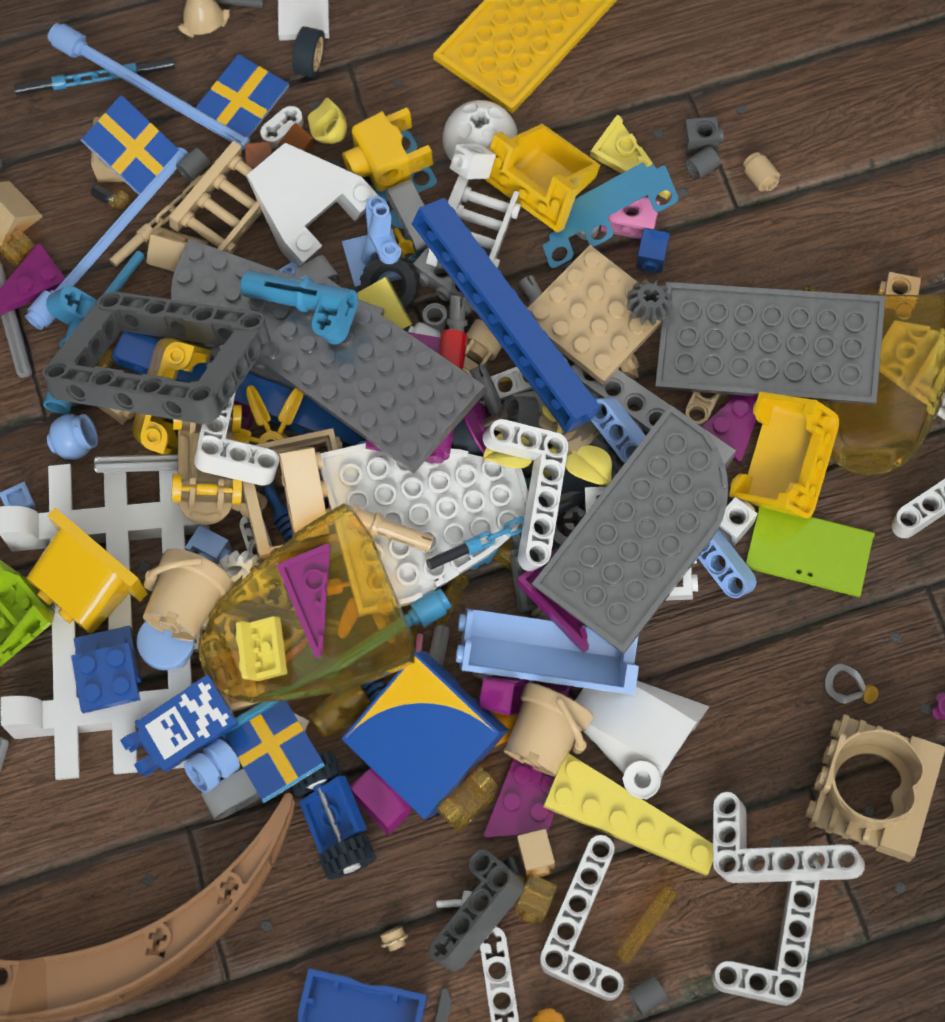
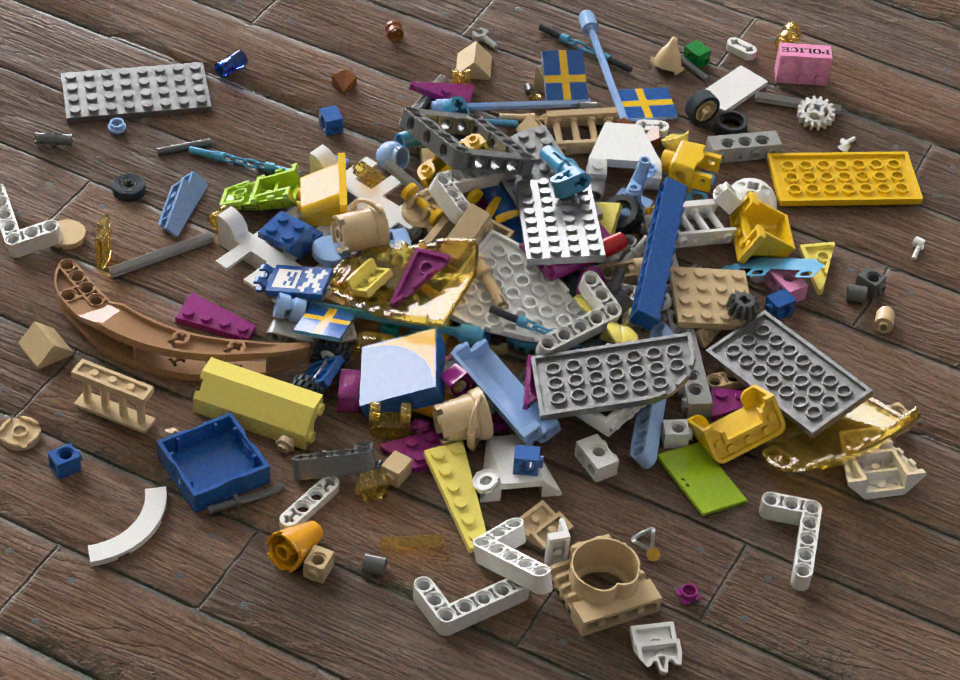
camera: 40 degrees right, 25 degrees down
(83, 492) = (368, 175): none -> clear yellow piece
(129, 851) = (213, 319): none -> magenta wing
(318, 923) = (258, 402): none -> light yellow panel
(352, 31) = (730, 116): none -> black tyre
(388, 73) = (744, 146): none -> light grey brick
(497, 768) = (420, 425): none -> magenta plate
(576, 921) = (382, 505): white beam -> none
(663, 718) = (527, 460): none -> blue brick
(688, 36) = (918, 243): none -> white hand
(710, 642) = (596, 458): none -> white brick
(737, 767) = (541, 521): none -> tan slope
(794, 779) = (557, 545): none -> white panel

